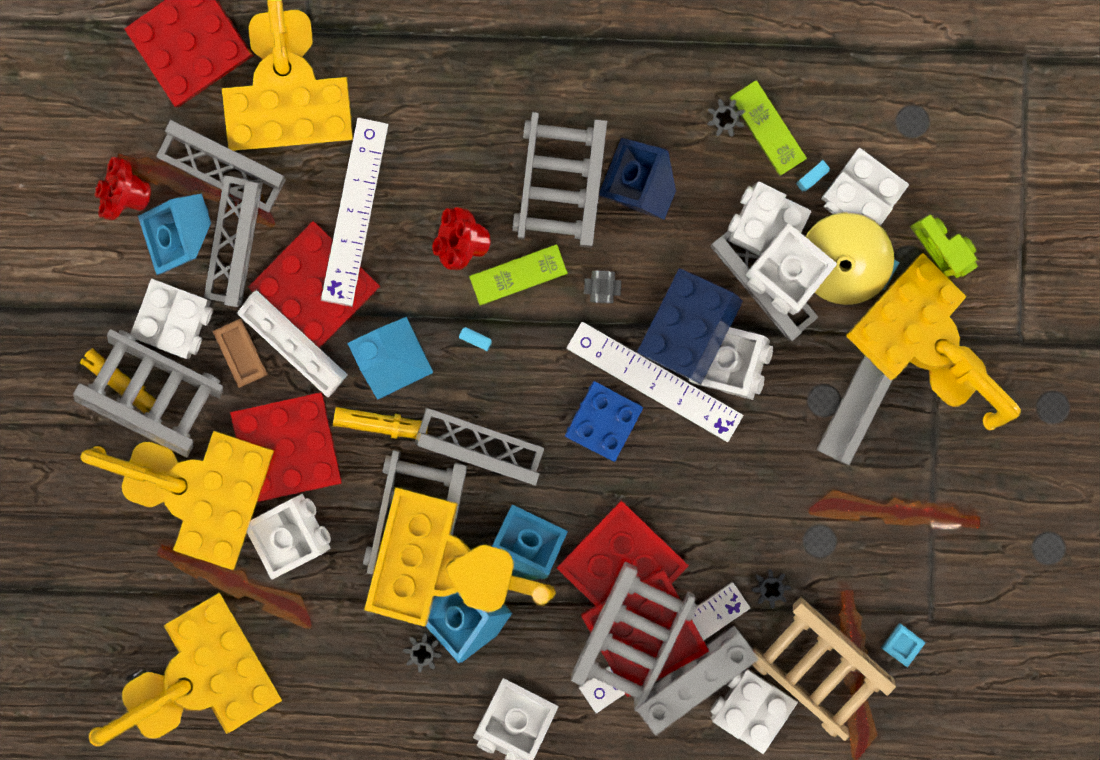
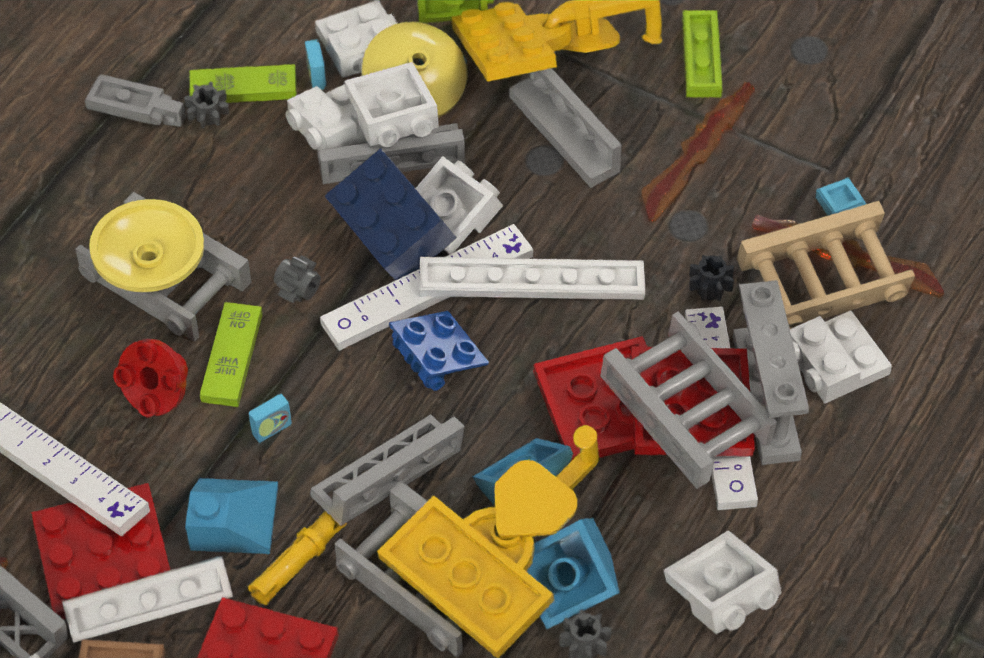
camera: 60 degrees left, 35 degrees down
(562, 149) = (146, 245): none -> light yellow dish
(640, 178) = (216, 194): dark blue slope -> none
(699, 456) = (532, 278): none -> white tile
(701, 55) = (134, 101): none -> light grey hinge
(996, 467) = (702, 53): none -> lime tile

